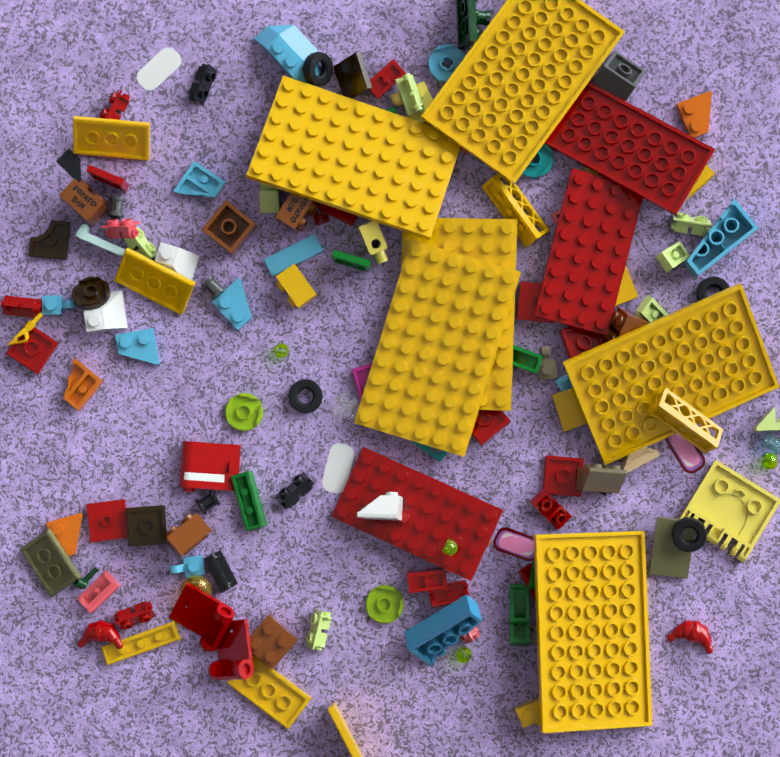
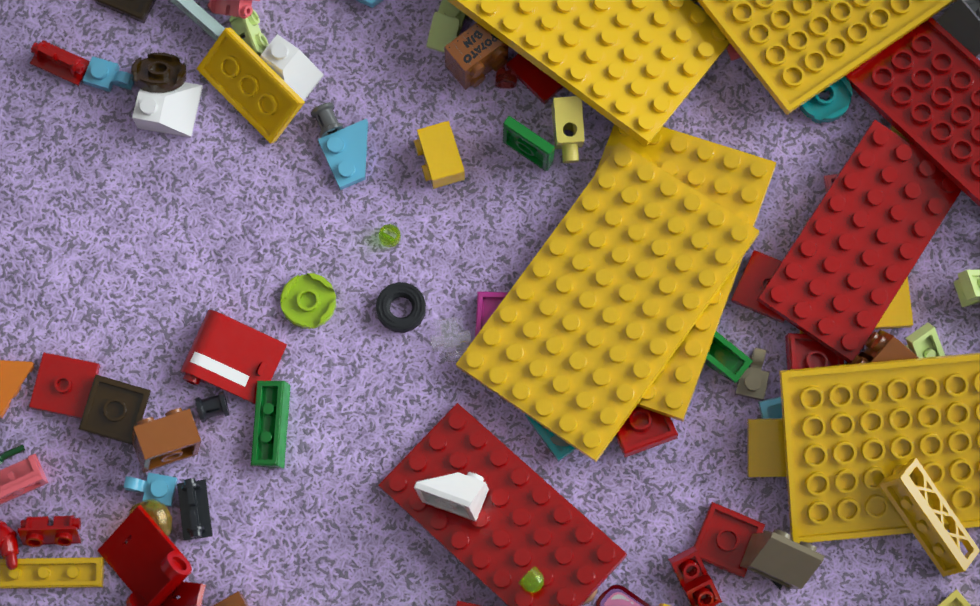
camera: 15 degrees right, 10 degrees down
(25, 331) = (49, 92): yellow hand -> none
(34, 352) = (52, 120): red plate -> none
(81, 385) = (98, 190): orange wing -> none
(138, 345) = (197, 164): medium azure wing -> none
(229, 228) = (377, 48): dark orange brick -> none
(287, 496) = (329, 435): black hinge -> none
(293, 254) = (460, 113): medium azure tile -> none
(338, 468) = (411, 422): white sticker -> none
(513, 209) = (768, 144): yellow fence -> none
(639, 458) = (847, 549): tan slope -> none
(687, 454) = (915, 567): sticker -> none

